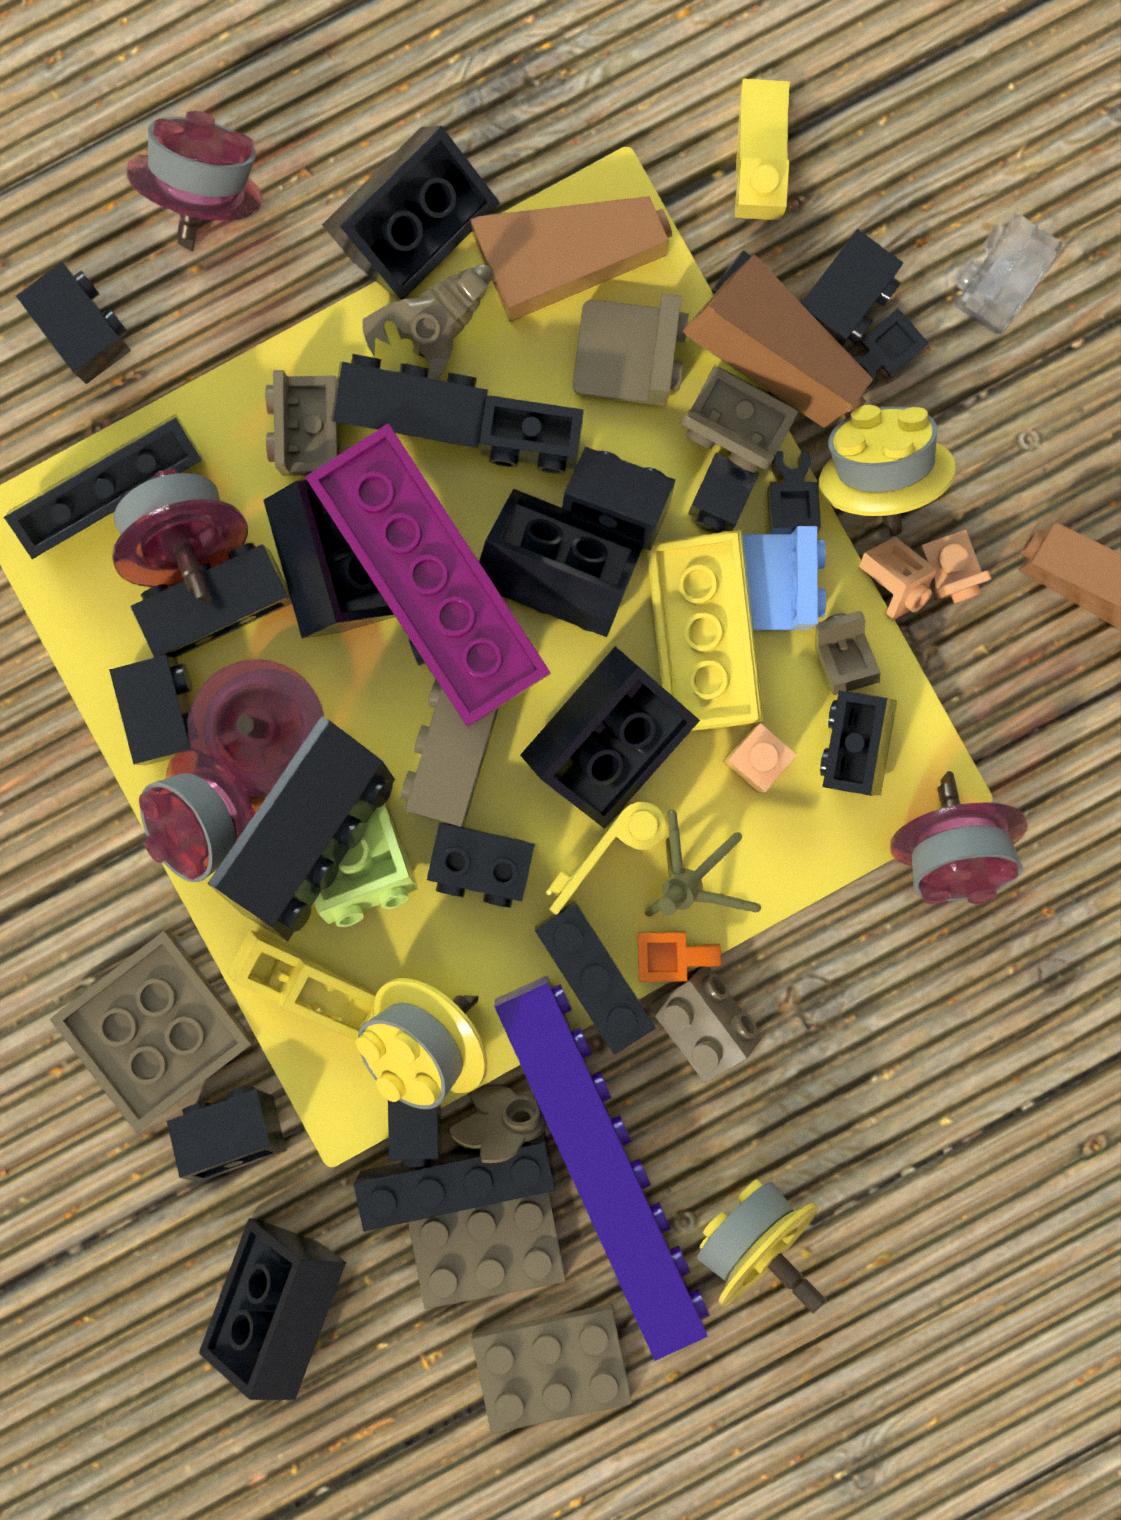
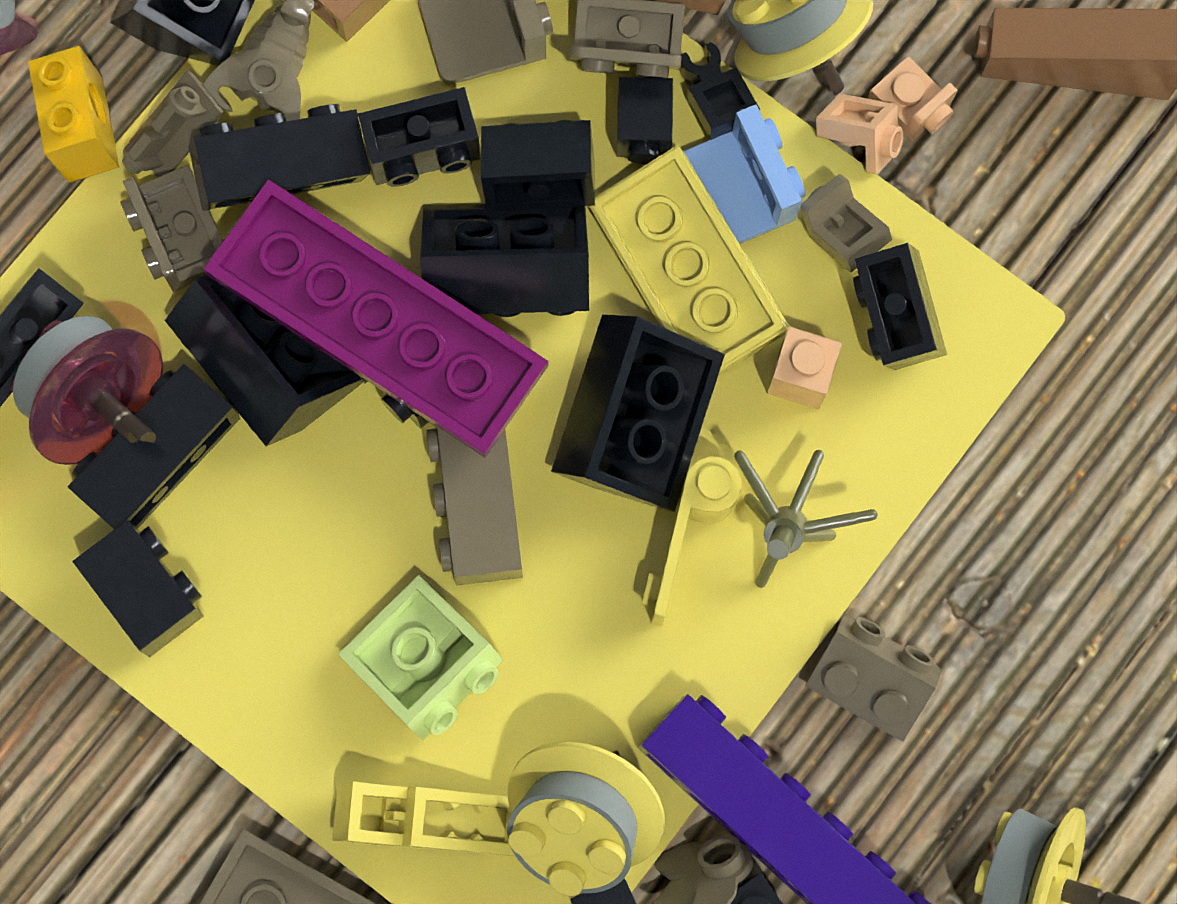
camera: 25 degrees left, 10 degrees down
(194, 814) = (238, 676): clear pink piece -> none
(254, 720) = (257, 556): clear pink piece -> none
(260, 291) = (73, 114): none -> yellow brick
(303, 830) = (355, 641): black slope -> none
(333, 340) = (171, 127): none -> dark tan hinge
(480, 863) = (559, 603): black brick -> none
(594, 977) = (734, 670): black brick -> none
(666, 956) = (802, 617): orange plate -> none
(961, 848) = (1055, 368): clear pink piece -> none

